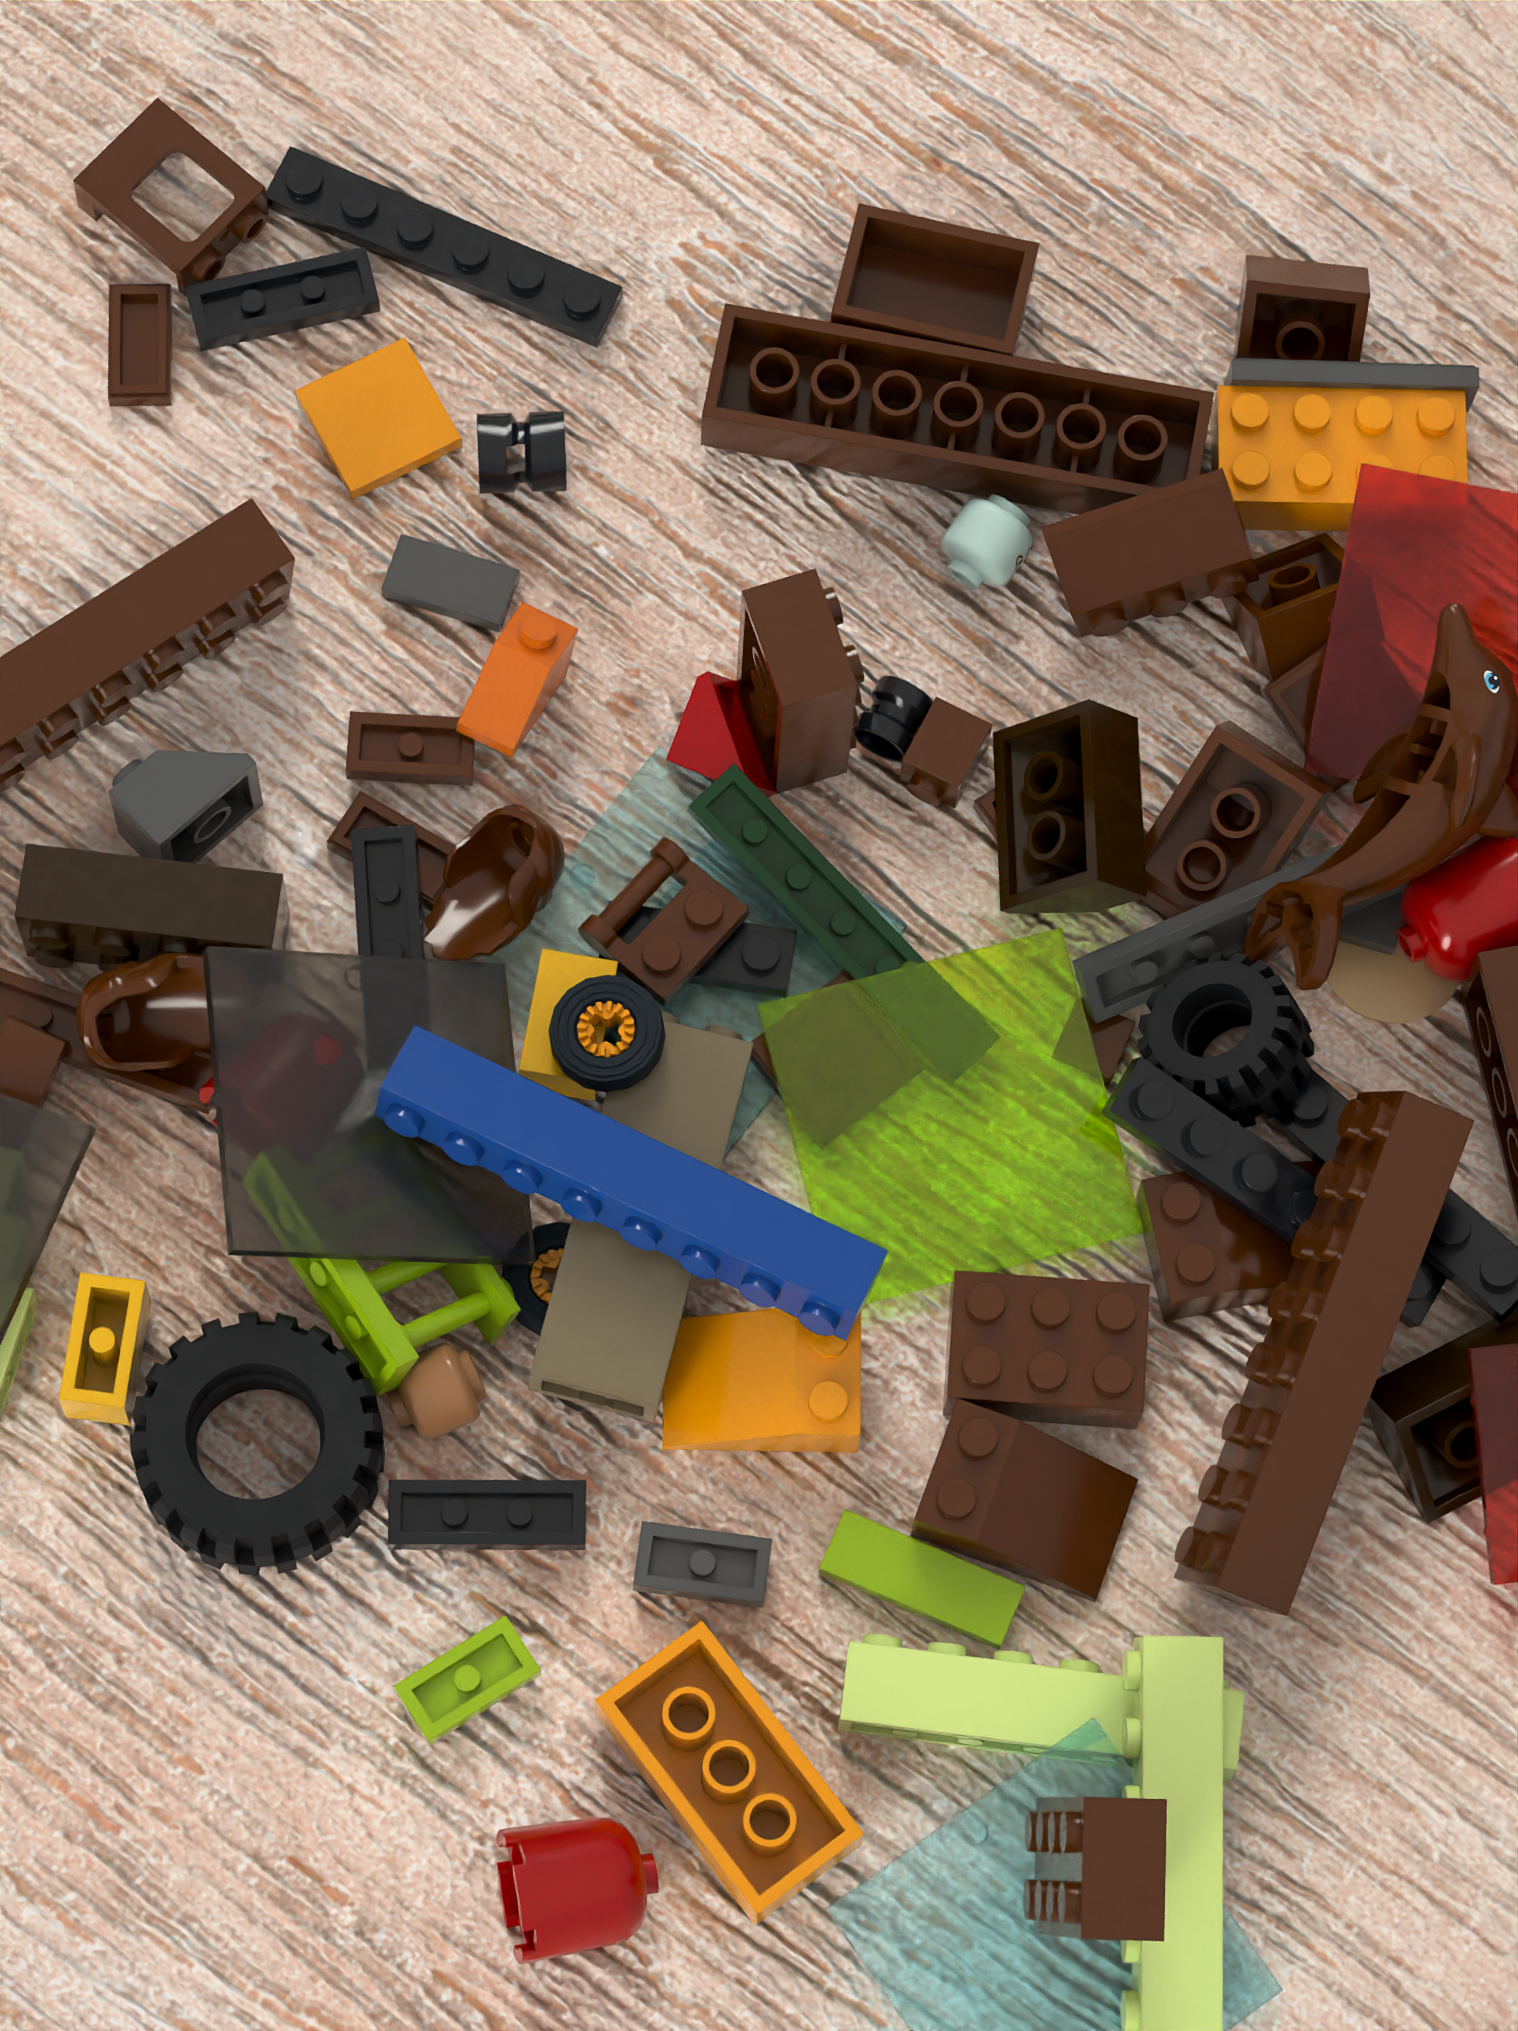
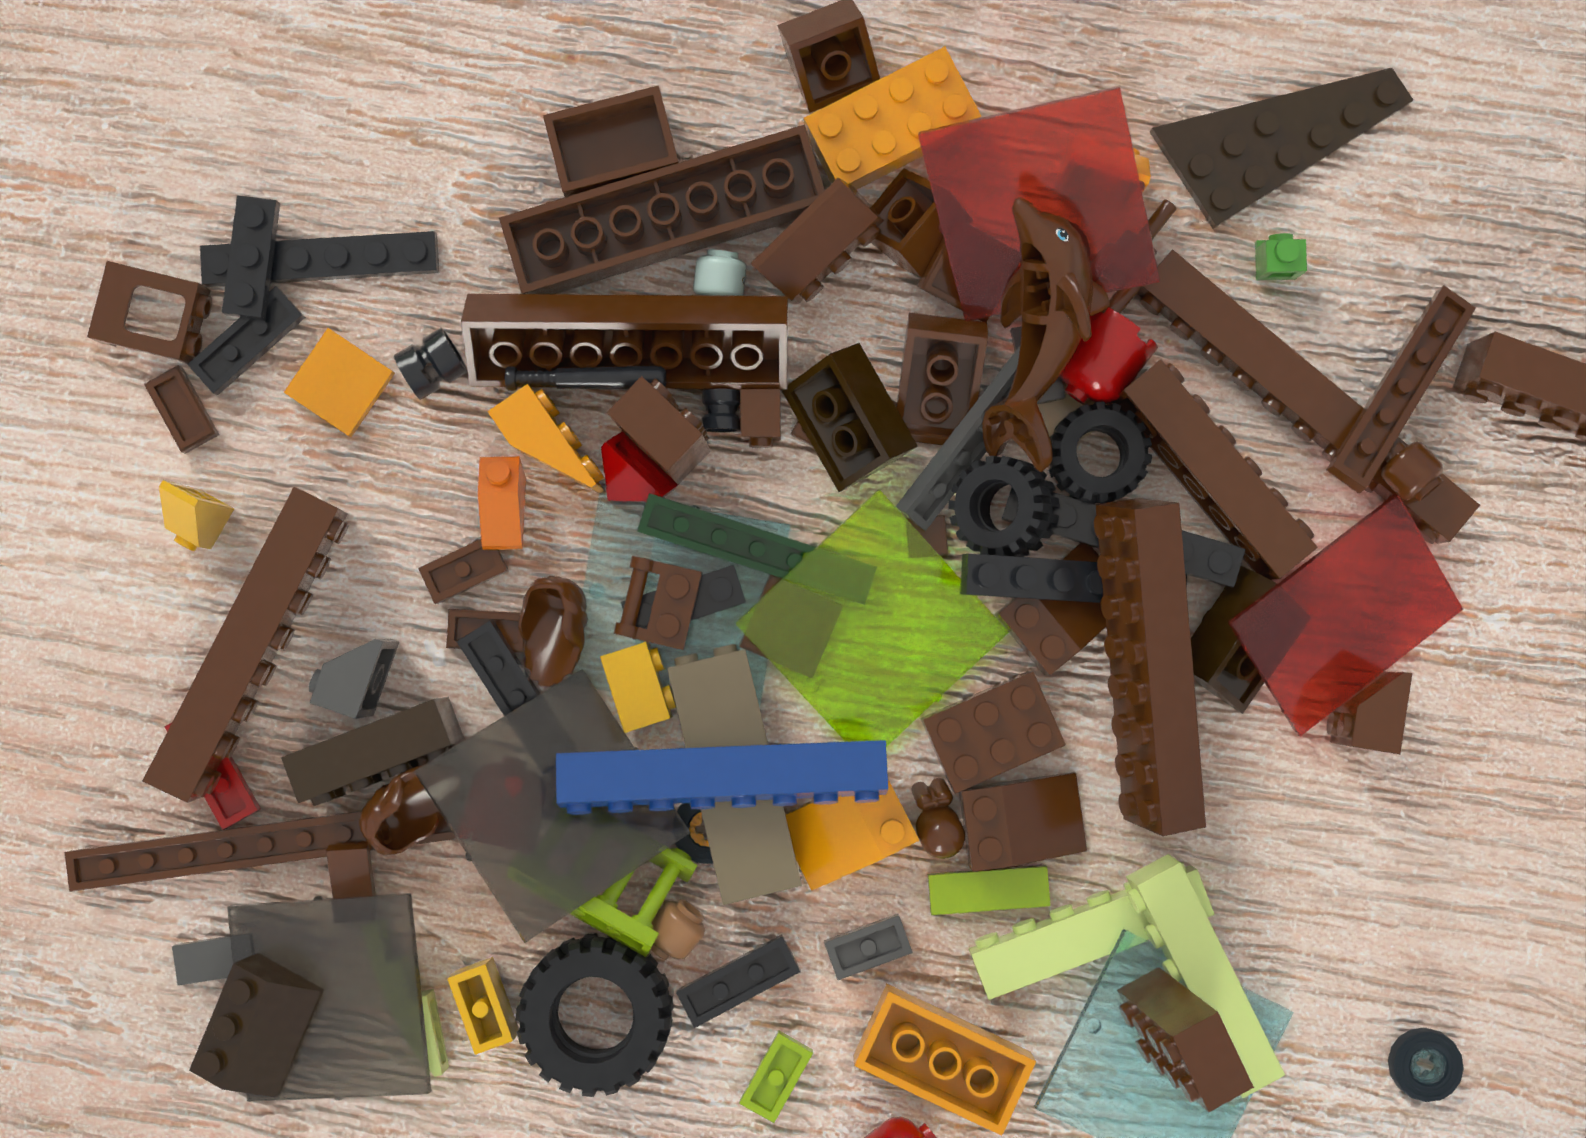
camera: 15 degrees left, 15 degrees up
(83, 476) = (192, 515): none -> yellow slope
(353, 192) = (251, 257): none -> black plate
(450, 583) = (432, 459): dark grey tile -> none
(607, 1001) = (644, 700): black bush -> none
(626, 624) = (530, 427): none -> light orange slope
(695, 551) = (585, 378): none -> black piece
(756, 517) = (694, 337): none -> reddish brown brick
(898, 1441) = (938, 824): none -> reddish brown piece
(1353, 375) = (876, 71): dark grey tile -> none
(1411, 995) = (1129, 439): none -> black tyre

